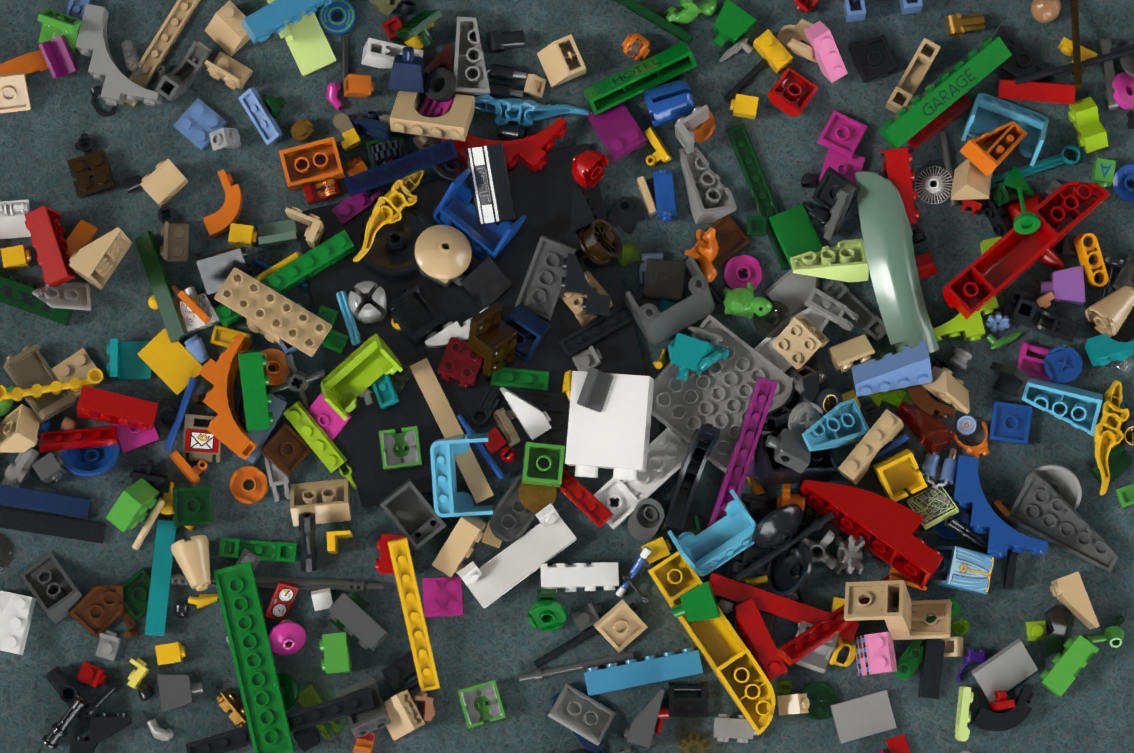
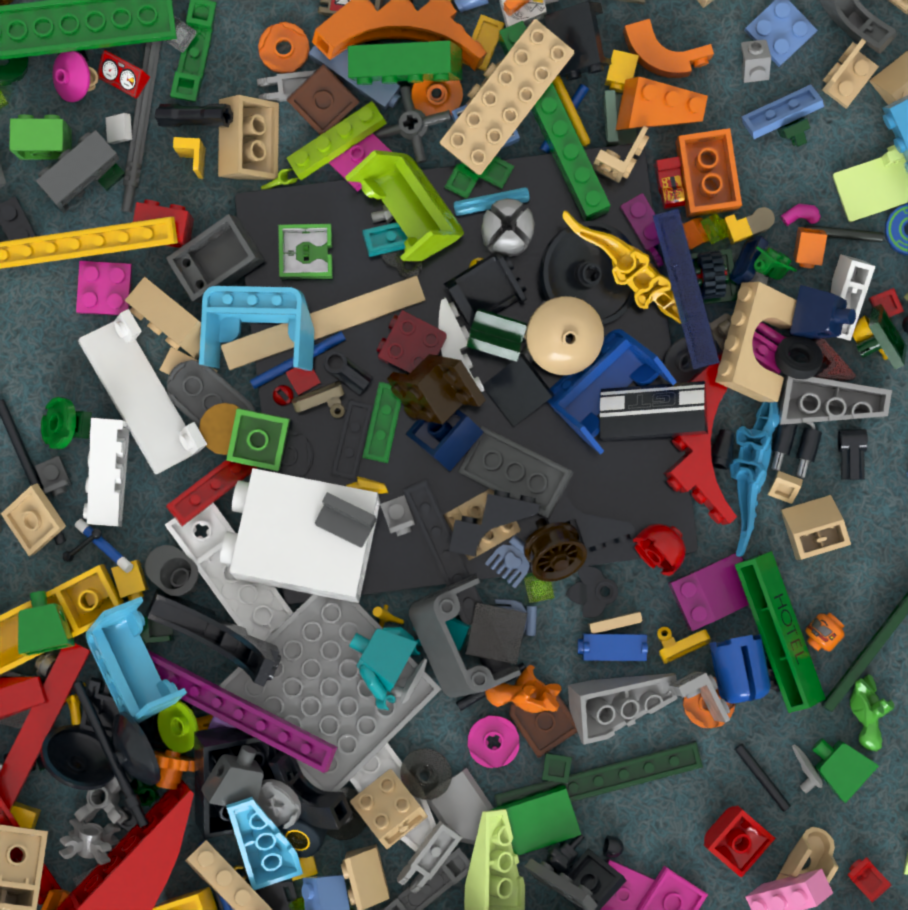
camera: 85 degrees right, 5 degrees up
(267, 208) = (658, 104): none -> orange wedge
(302, 130) = (756, 165): pearl gold plate -> none
(351, 155) = (715, 228): none -> clear neon green plate
(373, 110) = (773, 263): none -> green hinge
(448, 300) = (496, 335): none -> dark green panel
(531, 417) = (330, 427): white slope -> none
(608, 273) = (513, 558): none -> sand blue piece
(742, 302) = (451, 737): bright green animal -> none
(744, 106) = (725, 771): yellow brick -> none
(764, 503) = (177, 727): none -> lime dish
(772, 51) = (798, 820): yellow brick -> none

